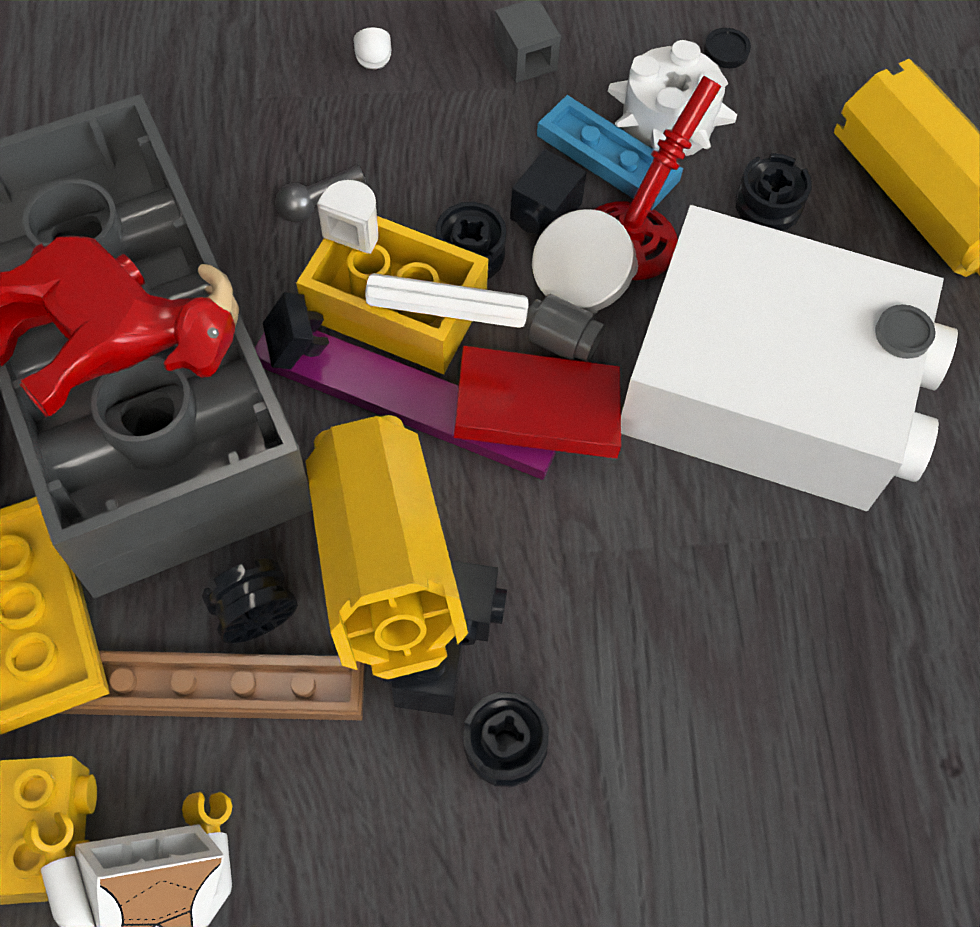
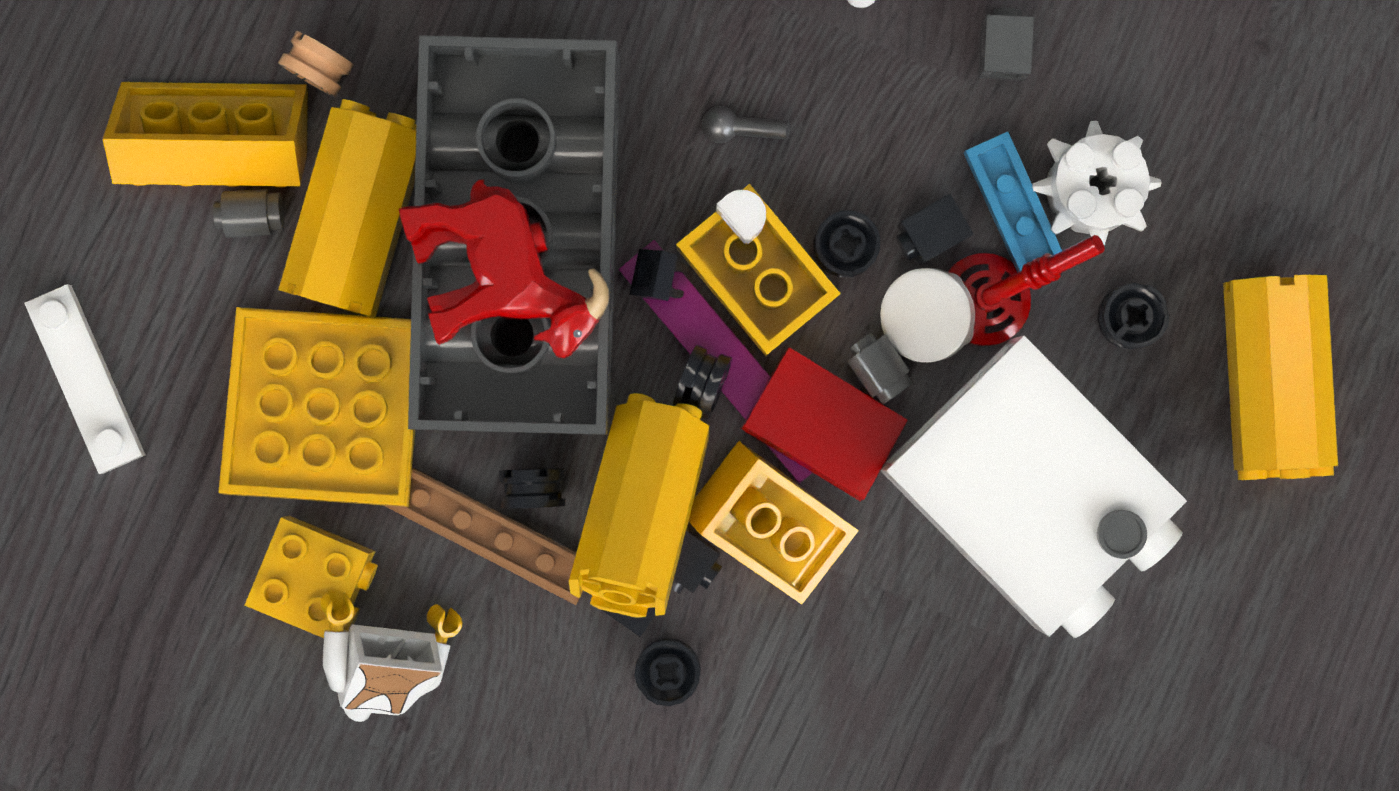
camera: 30 degrees right, 25 degrees up
(393, 390) = (703, 380): none -> black wheel
(446, 300) = (784, 325): white axle -> none
(535, 520) = (769, 523): none -> yellow slope
(727, 47) = (1195, 131): black piece -> none

